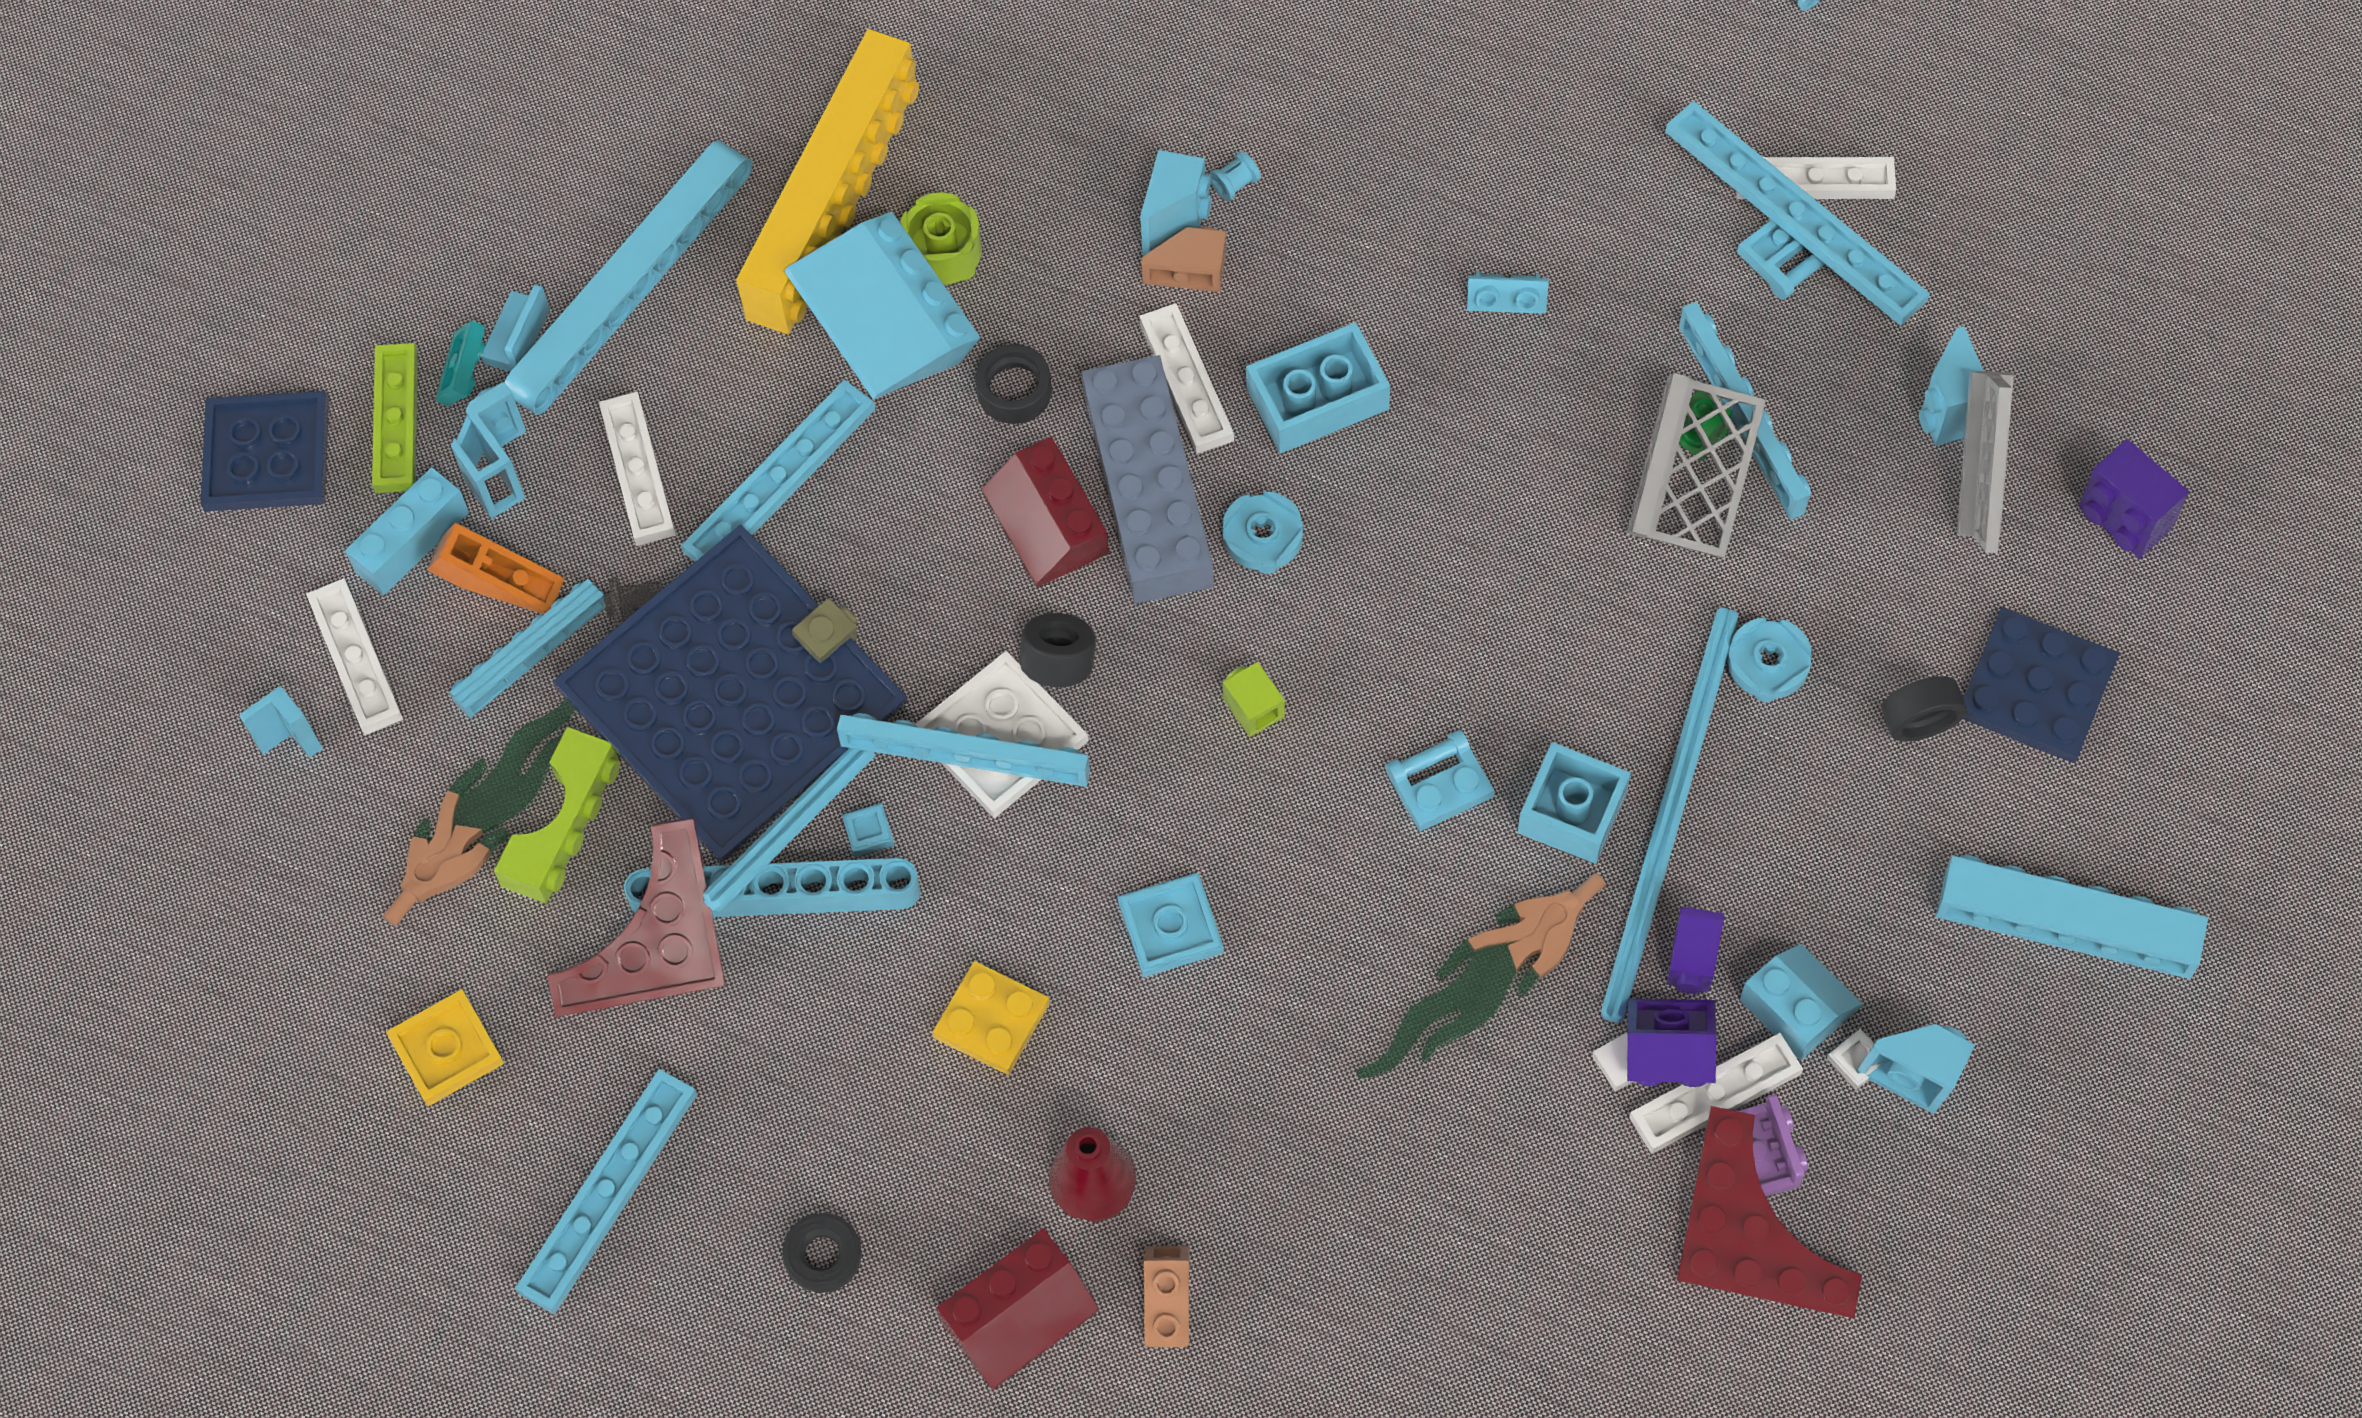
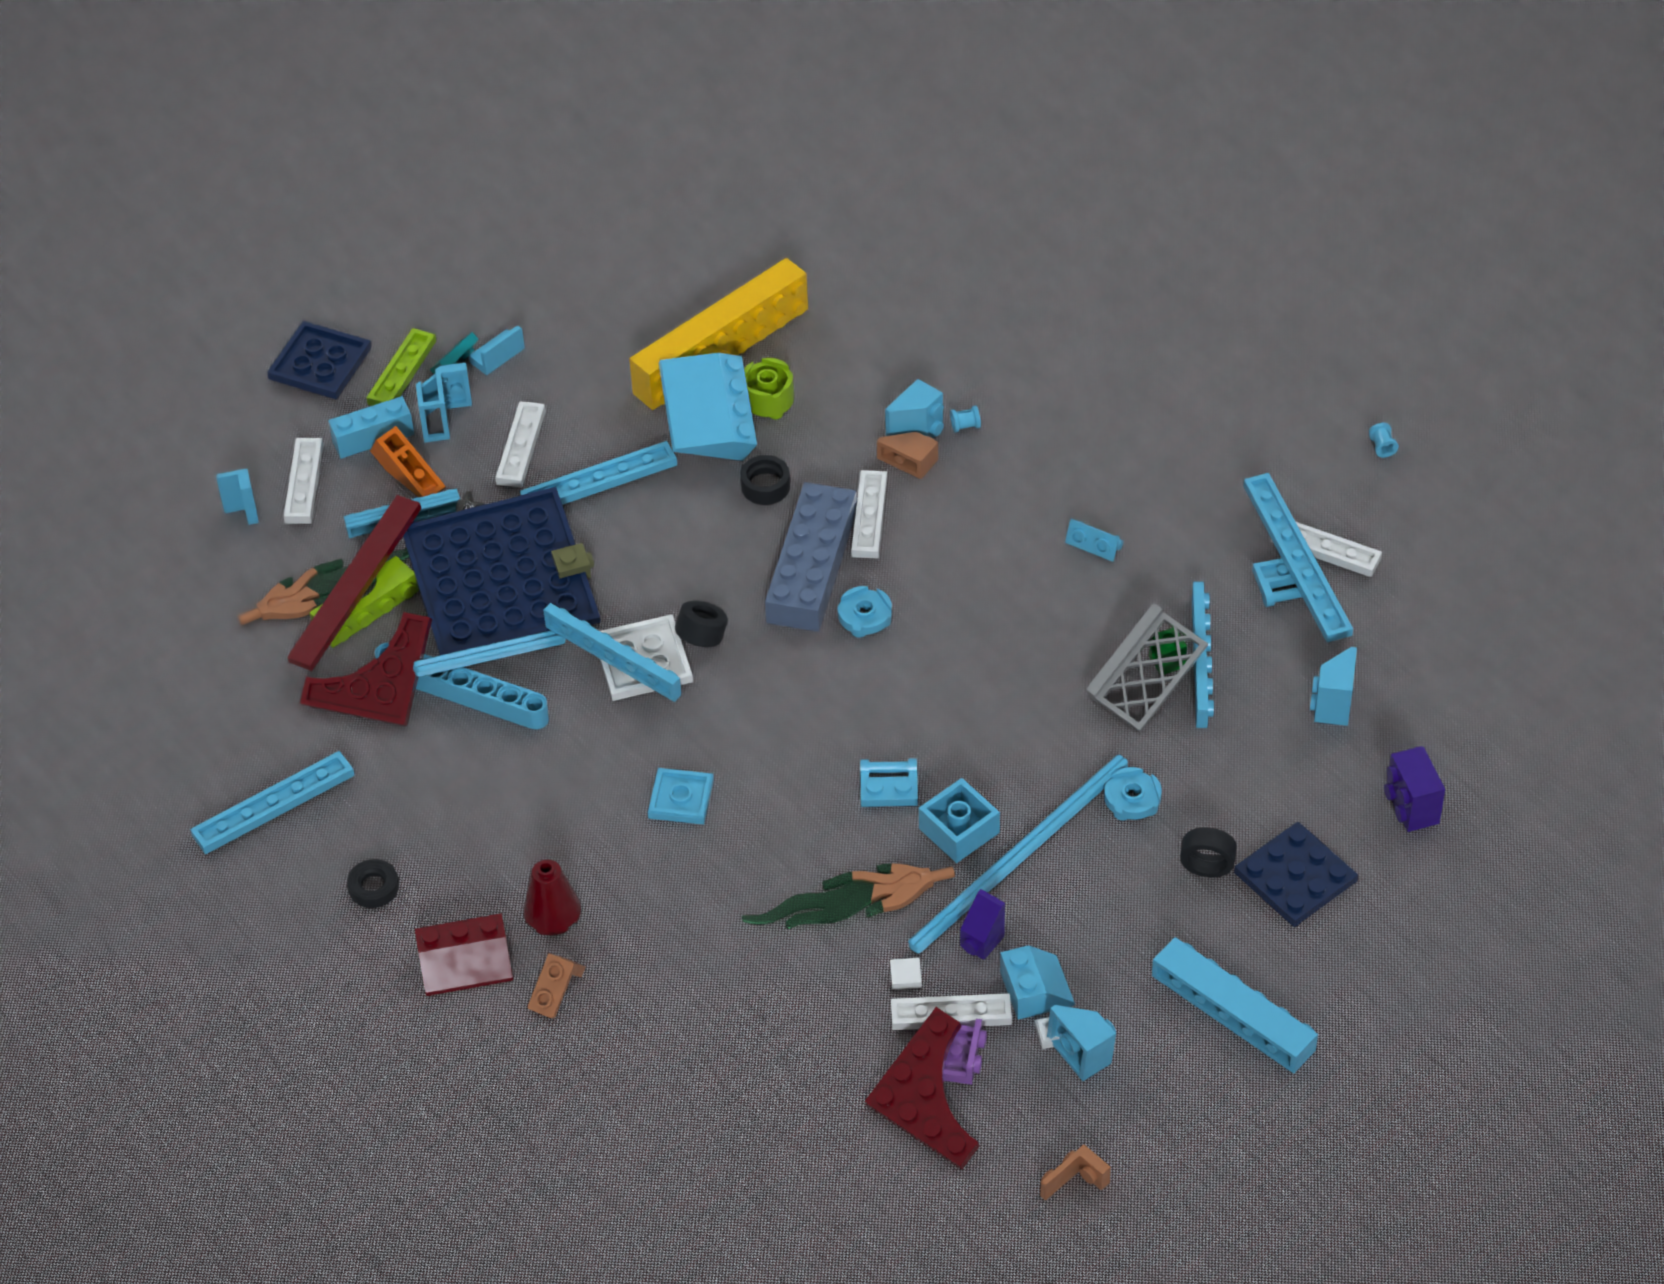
camera: 25 degrees right, 15 degrees down
(444, 1047) = (229, 695): yellow plate -> none
(537, 800) = (354, 583): none -> dark red tile
(628, 277) = (577, 345): medium azure beam -> none
(868, 830) = (537, 678): medium azure tile -> none
(991, 1017) = (546, 802): yellow plate -> none
(1045, 513) = (741, 553): dark red slope -> none
(1253, 698) = (802, 695): lime brick -> none
(1317, 387) = (942, 544): medium azure brick -> none
(1671, 1041) = (935, 968): dark purple slope -> none
(1985, 457) = (1330, 726): light grey fence -> none
(2026, 1245) = (1086, 1162): none -> nougat bracket

